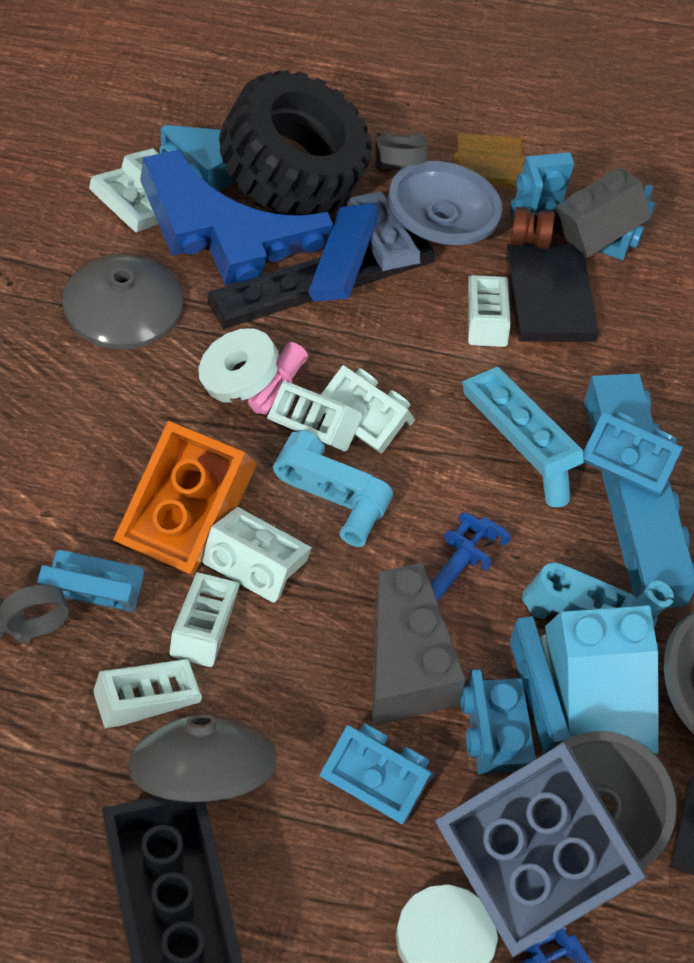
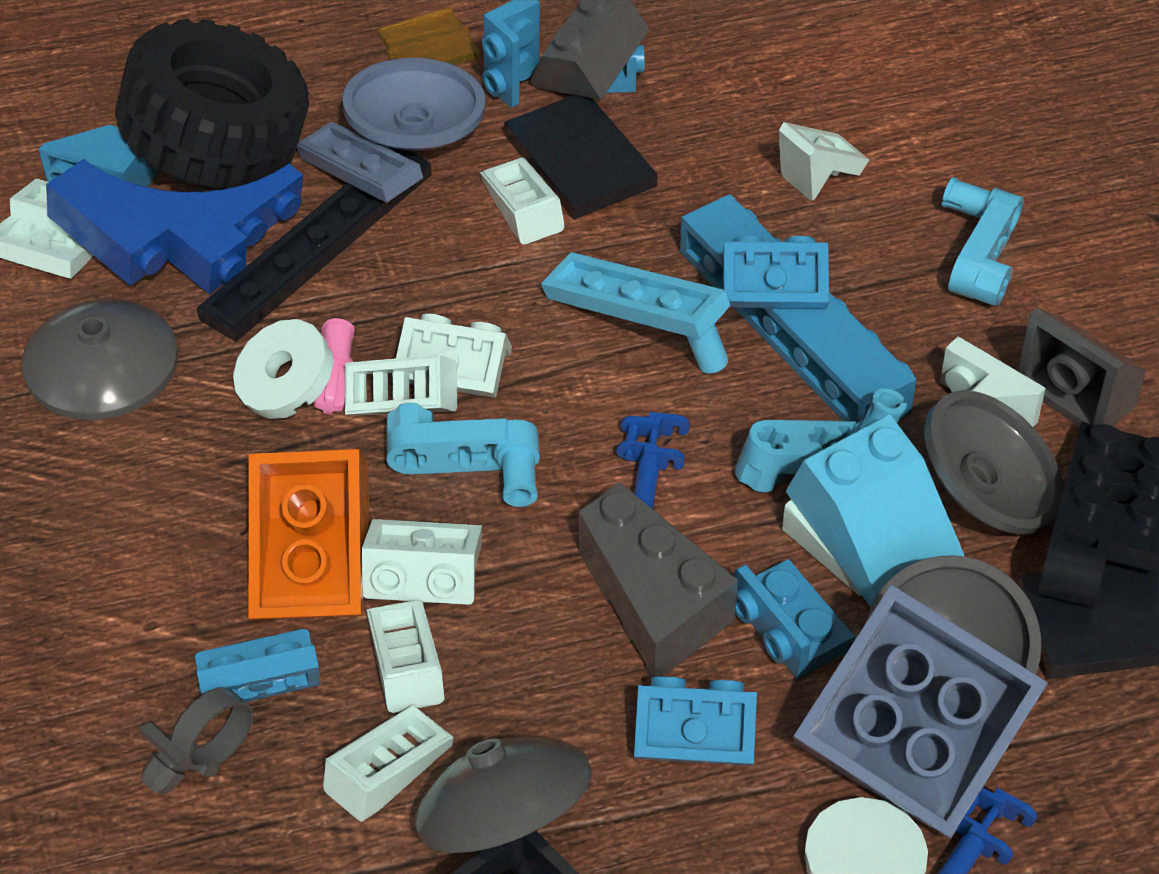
camera: 20 degrees left, 5 degrees down
(344, 252) = (332, 200): blue tile -> none
(400, 150) = (330, 69): dark grey piece -> none
(532, 228) = (525, 92): copper wheel -> none
(538, 685) = (817, 560): dark azure tile -> none

